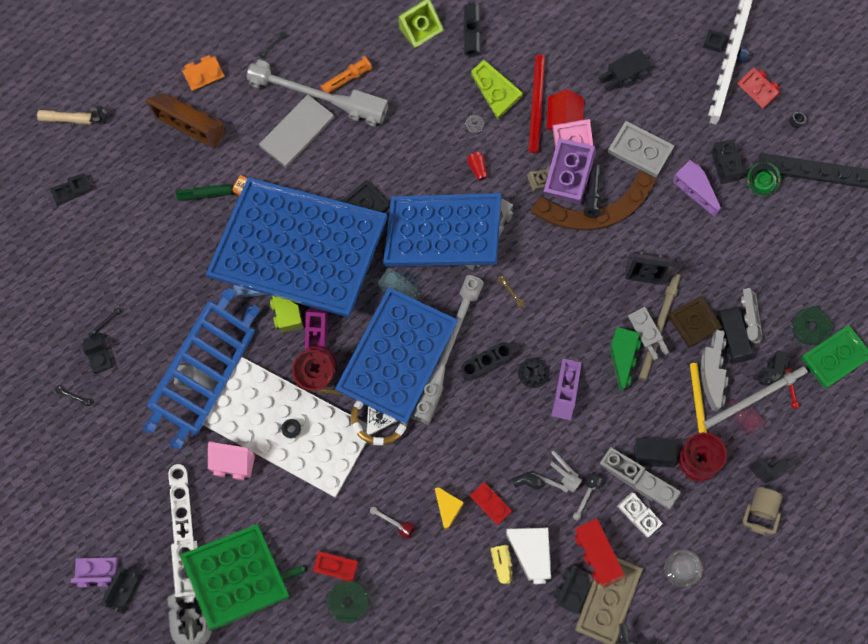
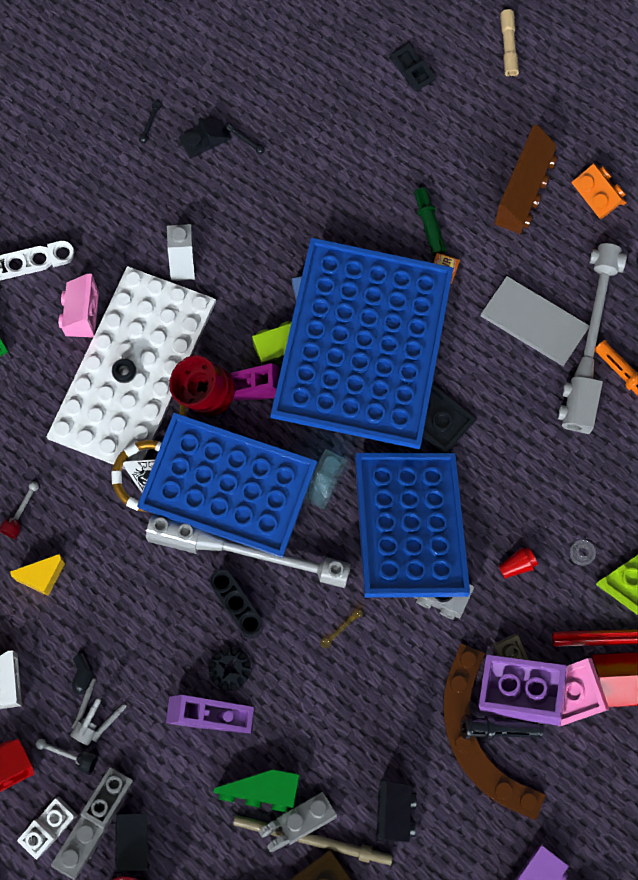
camera: 80 degrees right, 0 degrees up
(99, 115) = (519, 80): black plate -> none
(182, 354) = (181, 282): blue bar -> none
(490, 503) = (50, 630): red plate -> none
(640, 149) = (580, 794): light grey plate -> none

